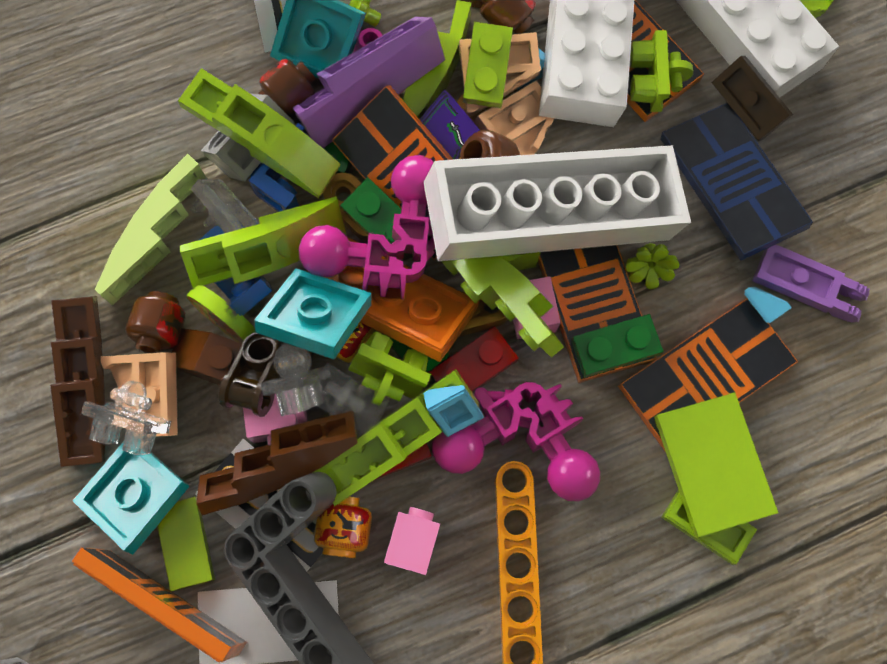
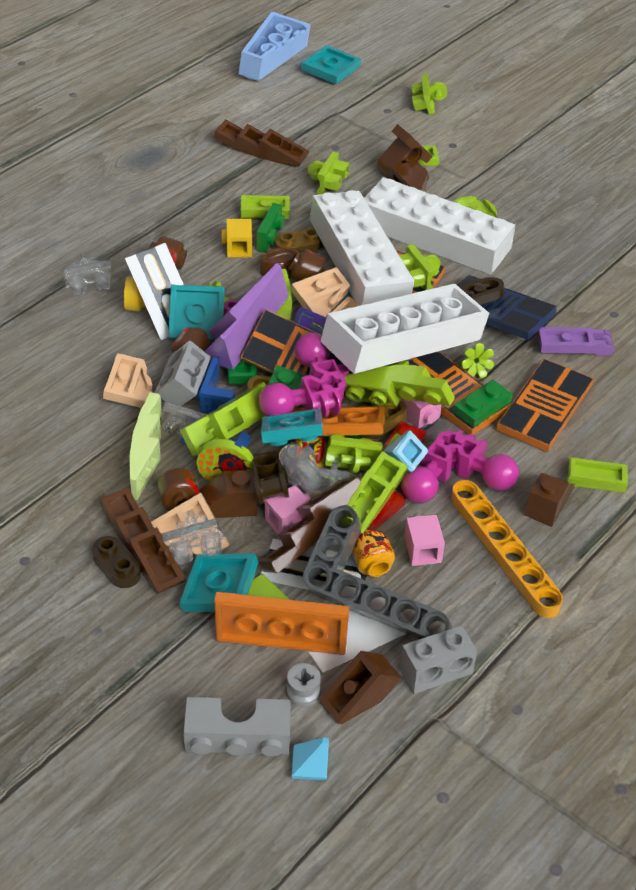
camera: 25 degrees left, 30 degrees down
(34, 395) = (111, 557): none -> dark brown plate
(175, 125) = (128, 381): none -> light nougat wing
(261, 131) = (209, 356): lime slope -> none
(487, 65) = (317, 289): lime plate -> none
(623, 536) = (548, 498): none -> reddish brown slope
(714, 151) = (484, 290): none -> dark brown plate
(715, 465) = (581, 439): lime tile -> none
(752, 98) = (480, 264): dark brown plate -> none
(766, 304) = (557, 353): medium azure slope -> none

